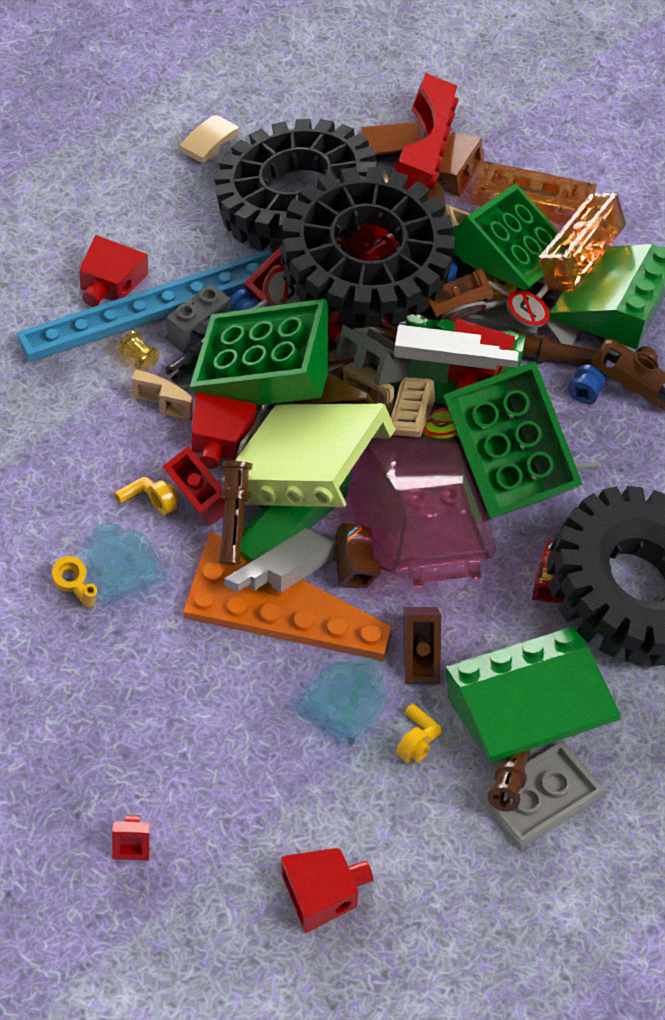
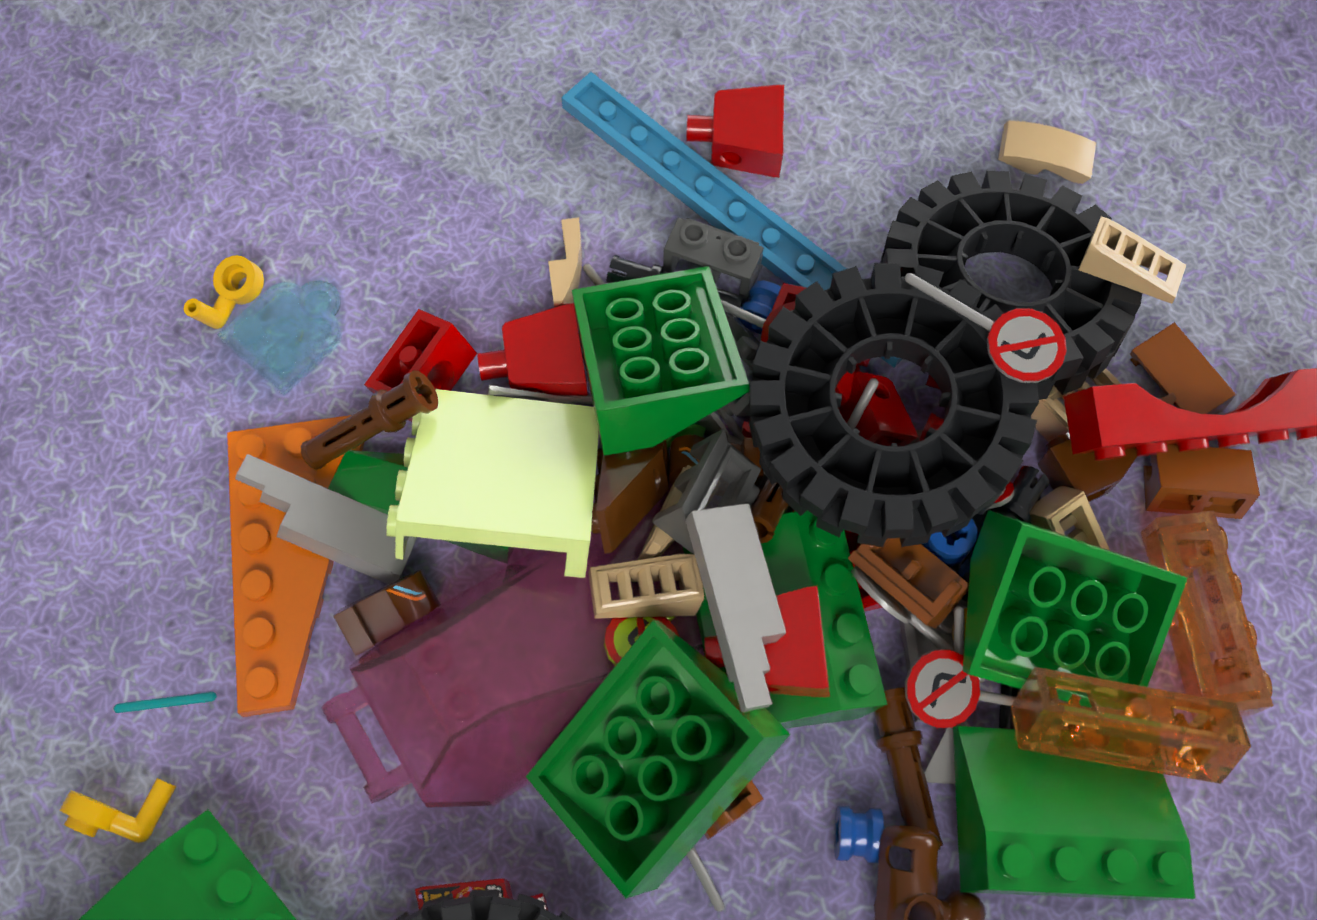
camera: 70 degrees right, 15 degrees up
(140, 352) = (630, 214): clear yellow bush -> none
(161, 494) = (398, 321): yellow plate -> none
(321, 123) = (1117, 256): none -> tan slope
(345, 698) = (151, 690): clear light blue plate -> none
(368, 165) = (1020, 342): none -> piece
(422, 644) = (271, 757): reddish brown slope -> none

